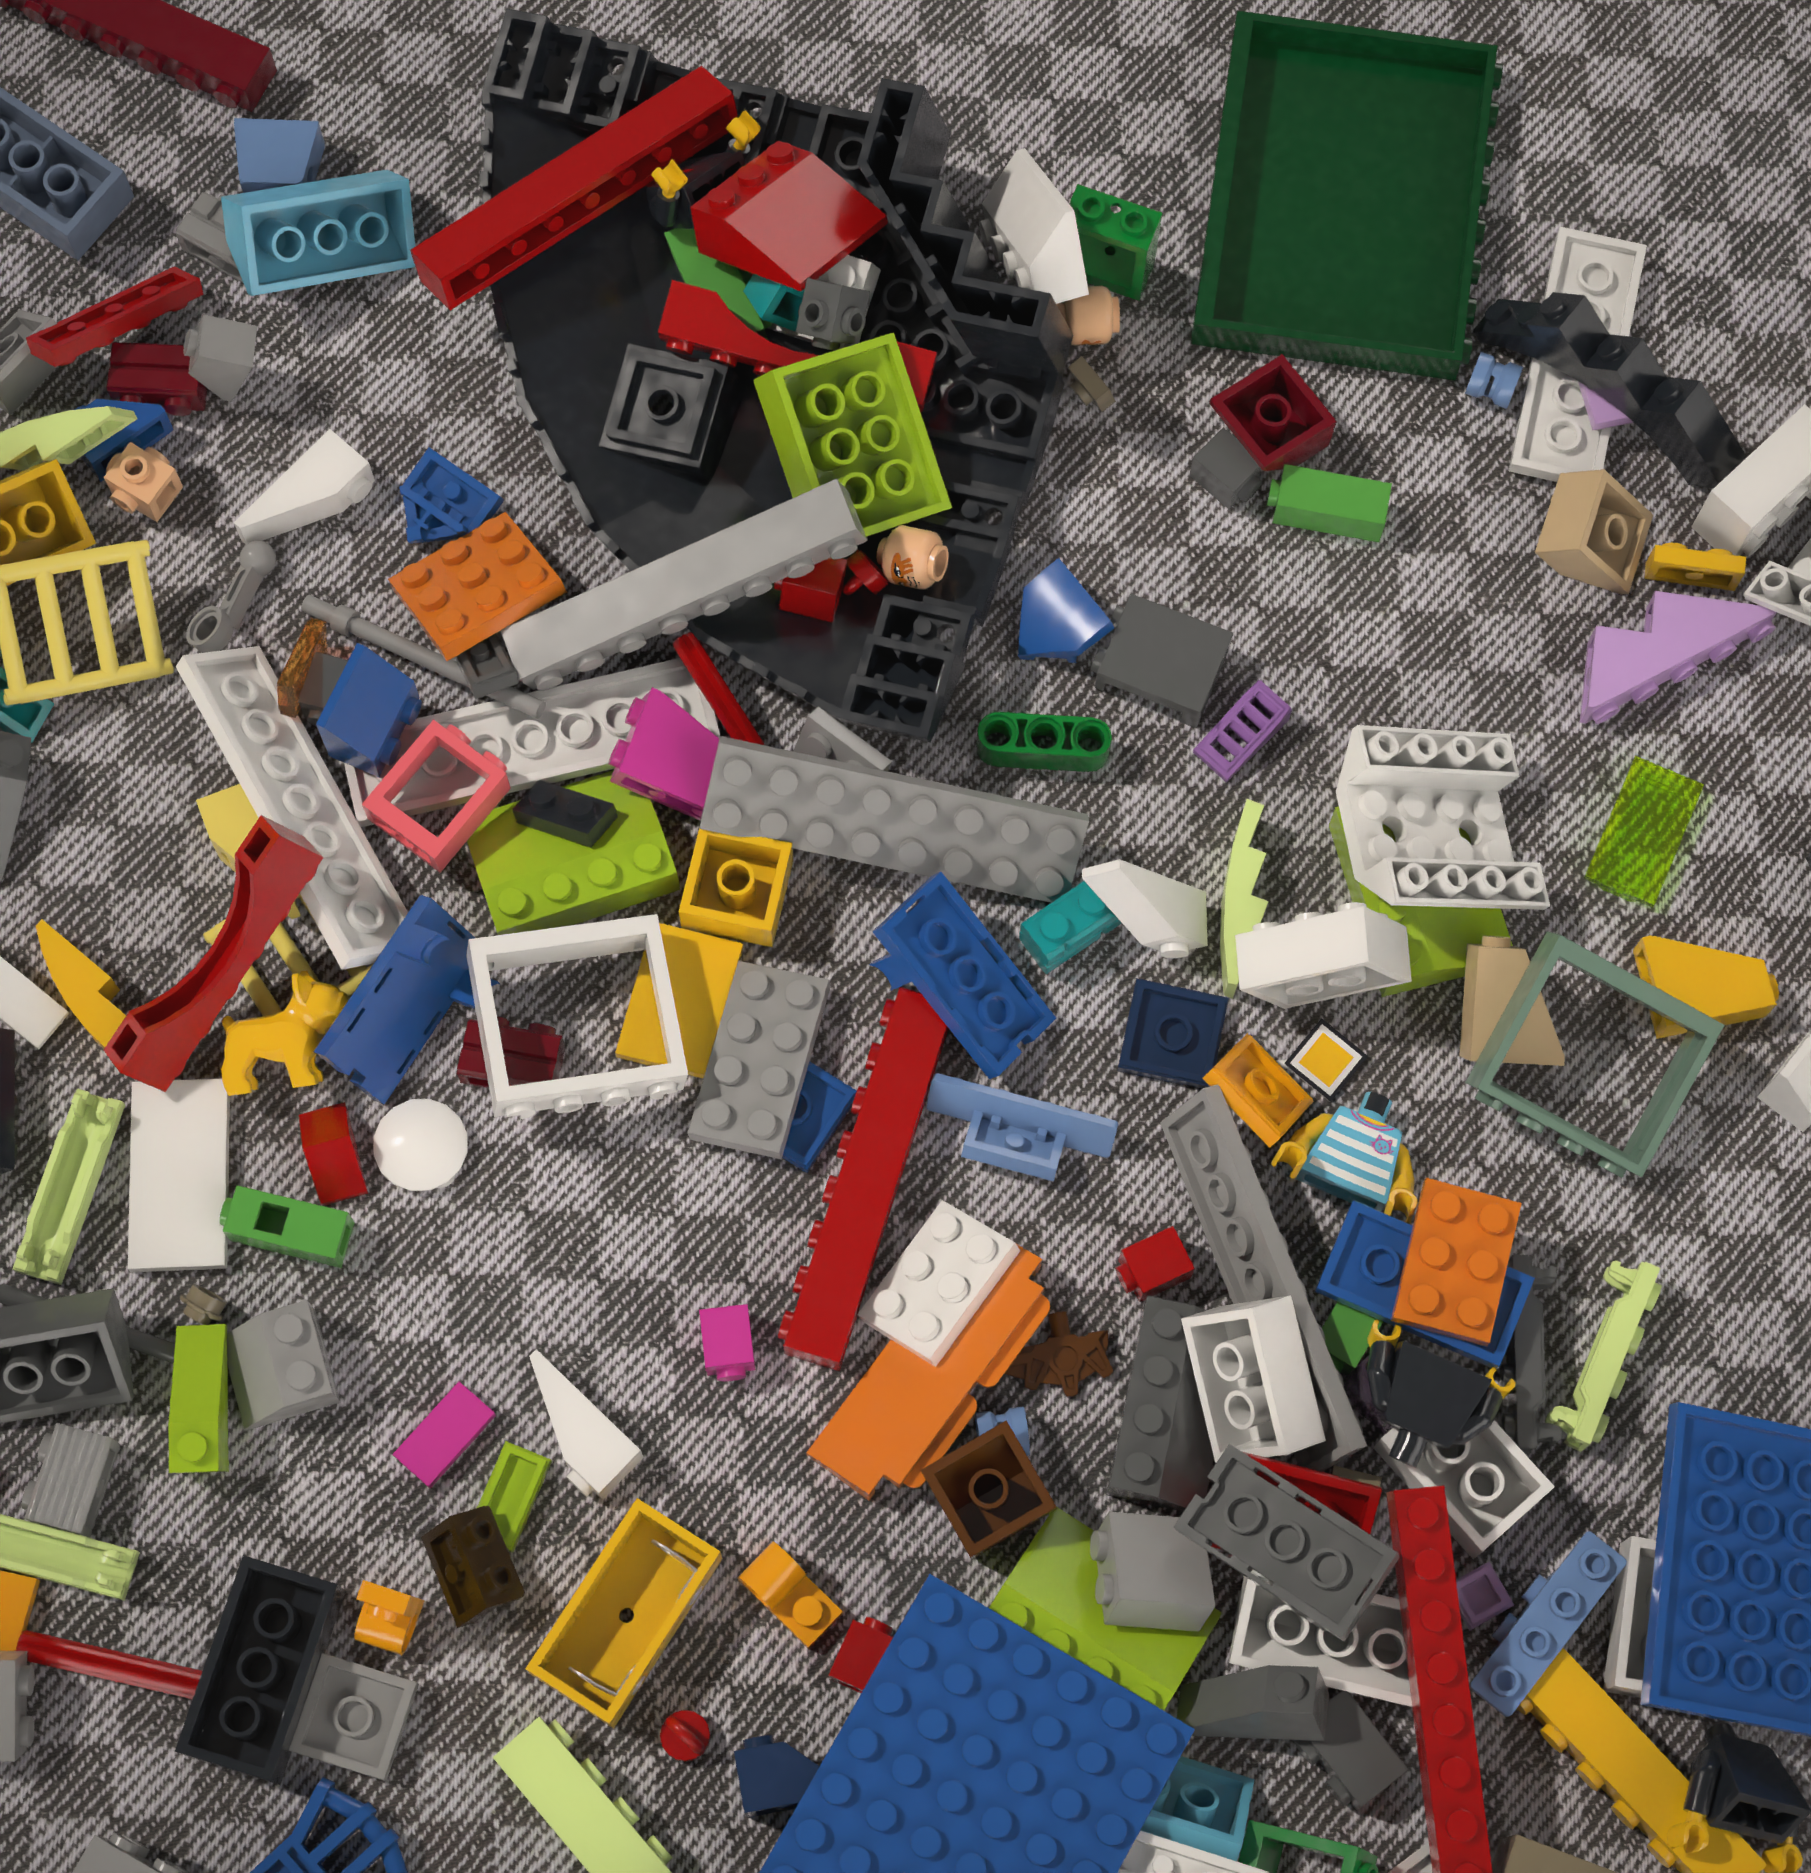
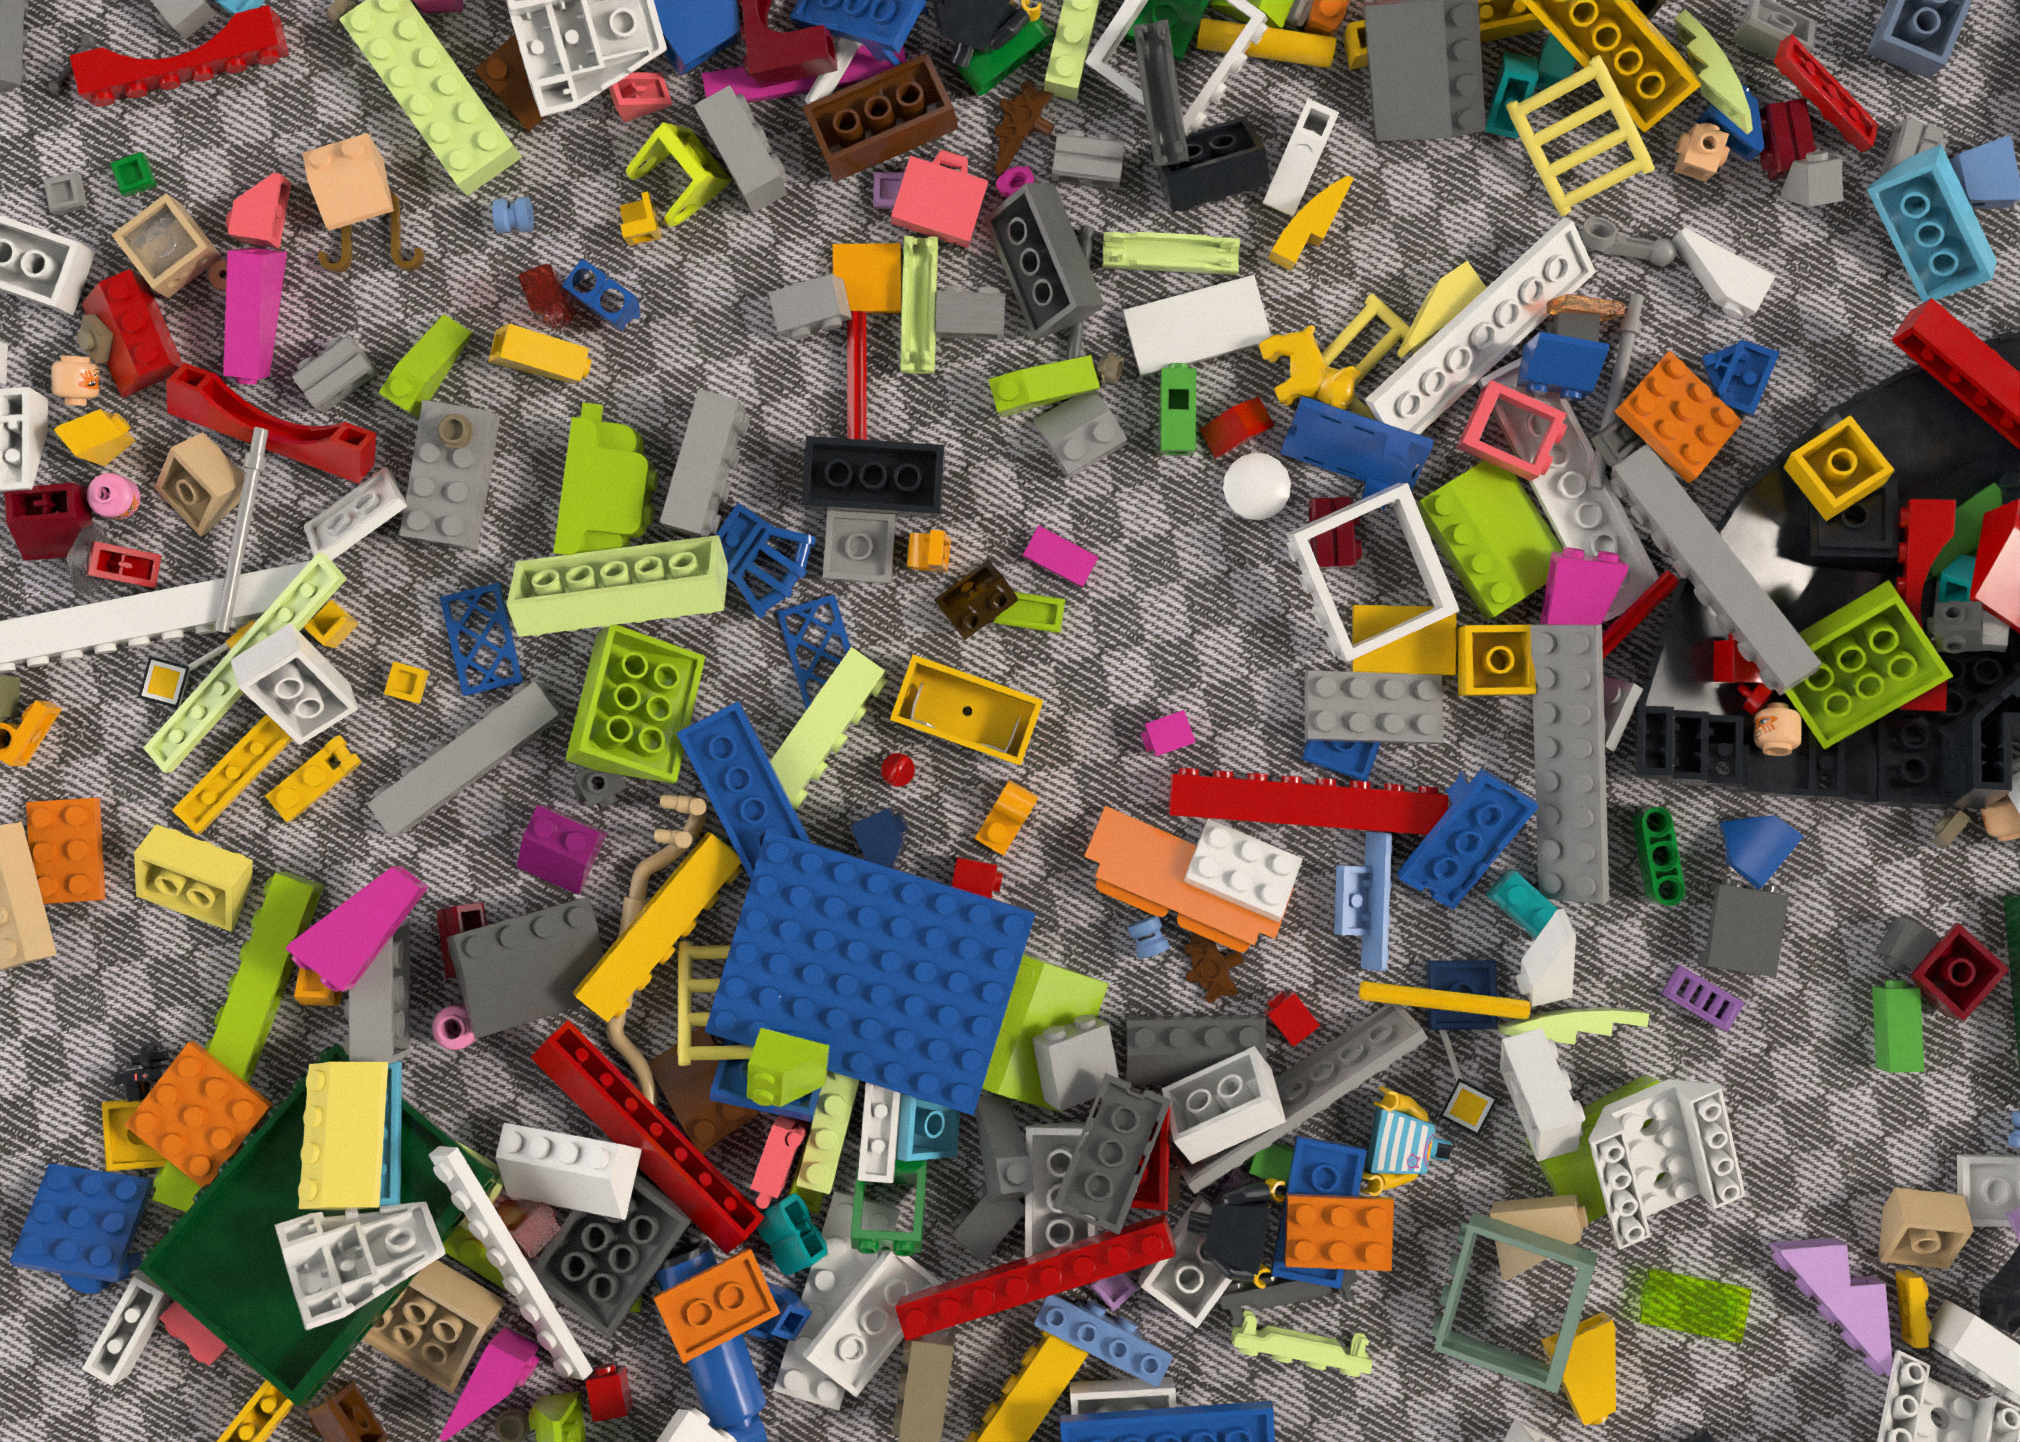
camera: 80 degrees right, 15 degrees up
(163, 1033) = (1418, 330): red arch -> none
(464, 1849) = (792, 641): none -> blue window
(565, 813) = (1520, 525): black plate -> none
(587, 1438) = (1079, 653): white slope -> none
(595, 407) = (1838, 468): none -> yellow brick
(989, 1489) = (1105, 938): reddish brown slope -> none
(1174, 1057) = (1444, 1000): none -> yellow axle
(1259, 1090) = (1433, 1066): light orange tile -> none

